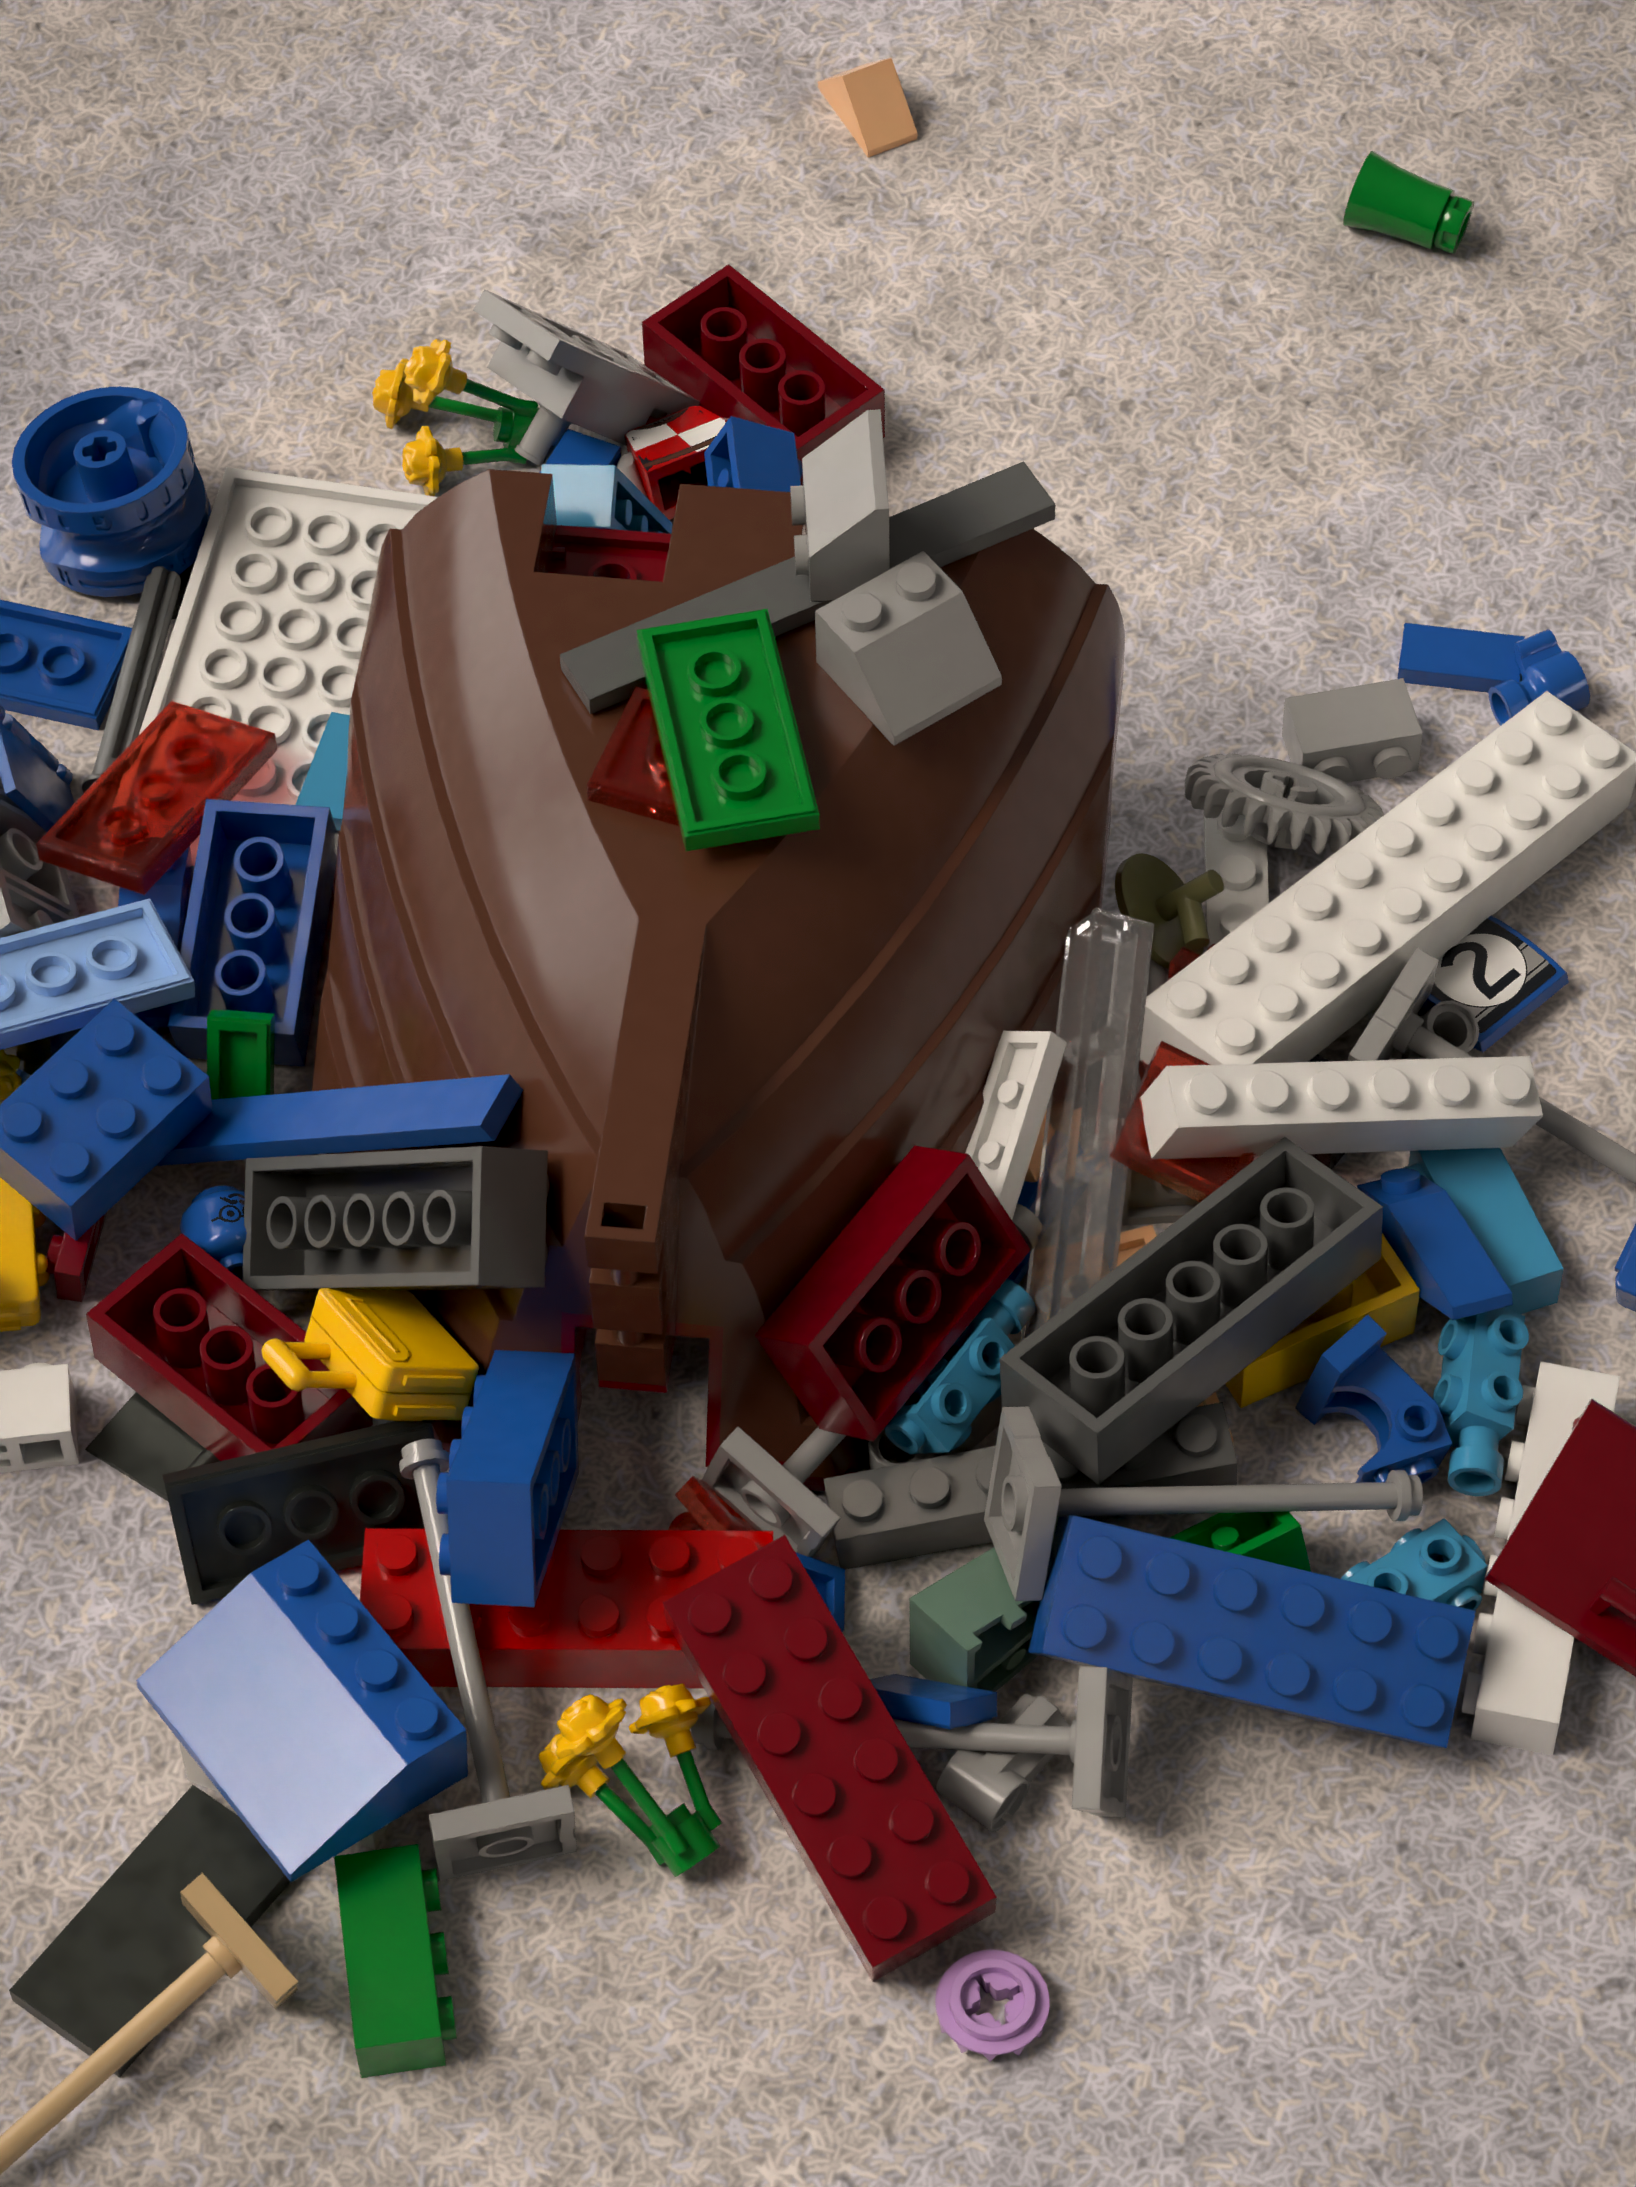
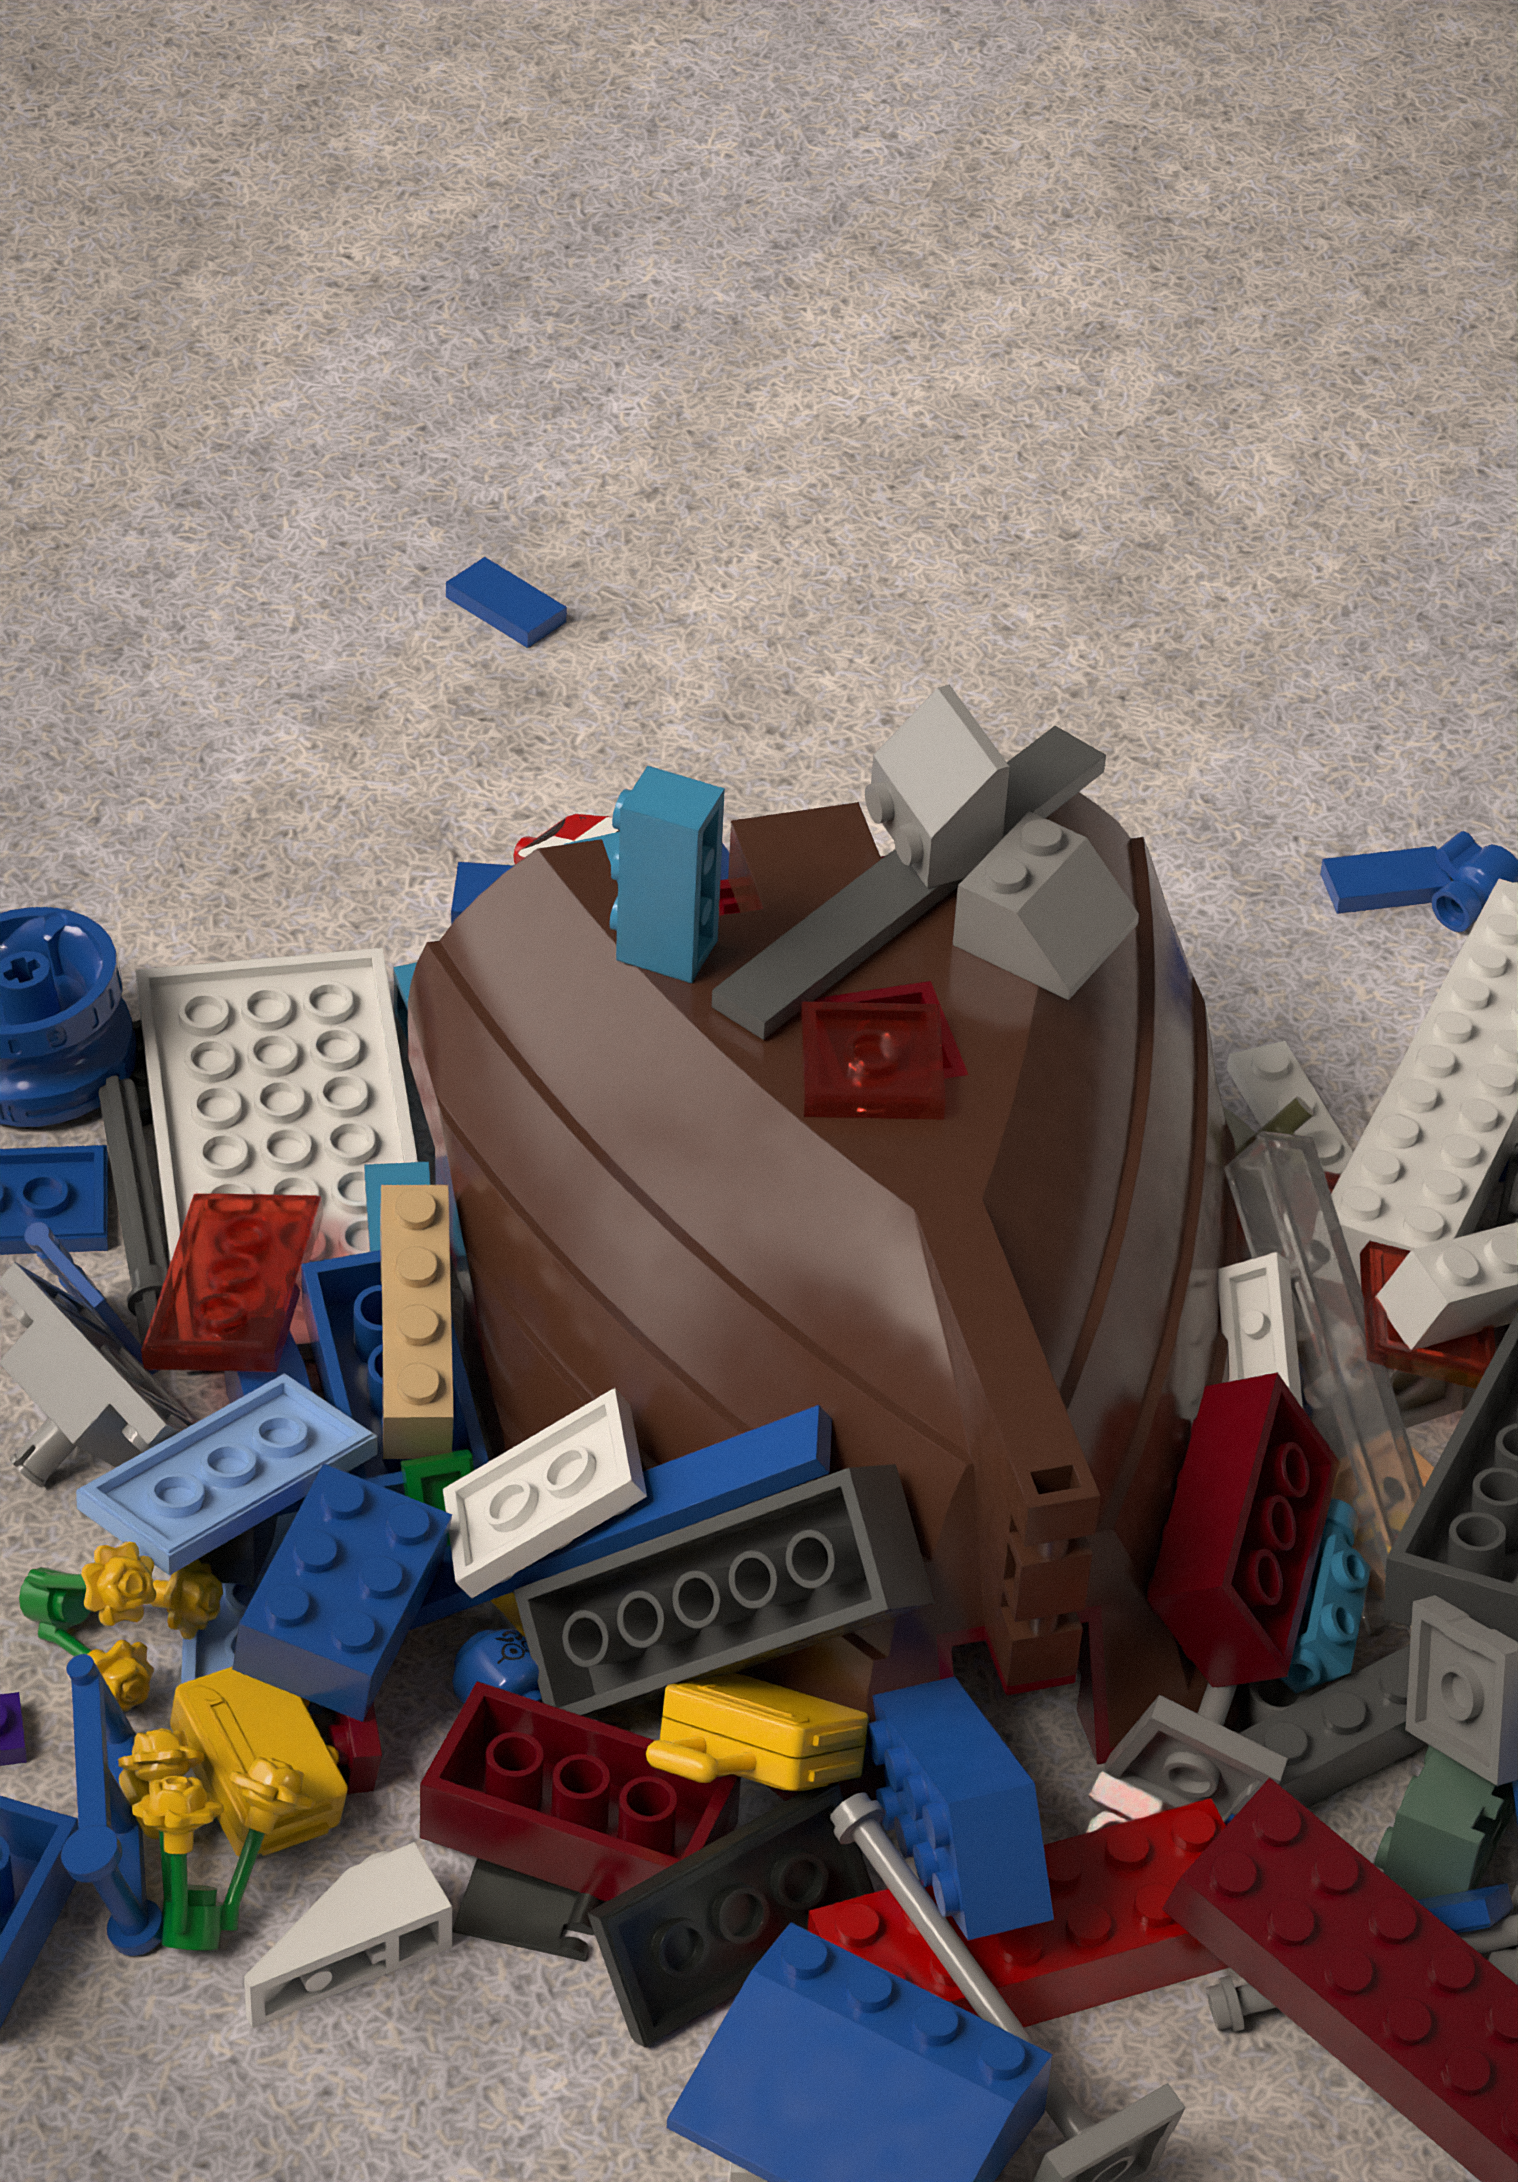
camera: 25 degrees left, 10 degrees down
(248, 927) = (416, 1321): none -> tan arch
(290, 1079) = (544, 1493): none -> white plate
(416, 386) = (315, 829): yellow plant -> none
(546, 534) = (667, 873): none -> dark azure brick
(572, 378) = (449, 809): light grey brick -> none
(589, 1738) = (1165, 2022): plant -> none
(727, 730) = (918, 1016): green tile -> none
(756, 362) = (580, 754): dark red brick -> none
(762, 165) = (506, 602): none -> blue tile
(871, 106) = (583, 528): light nougat slope -> none
(1233, 784) = (1317, 1029): light grey gear -> none
(1354, 731) = (1332, 963): light grey brick -> none
(1406, 206) = (1130, 511): green plant -> none

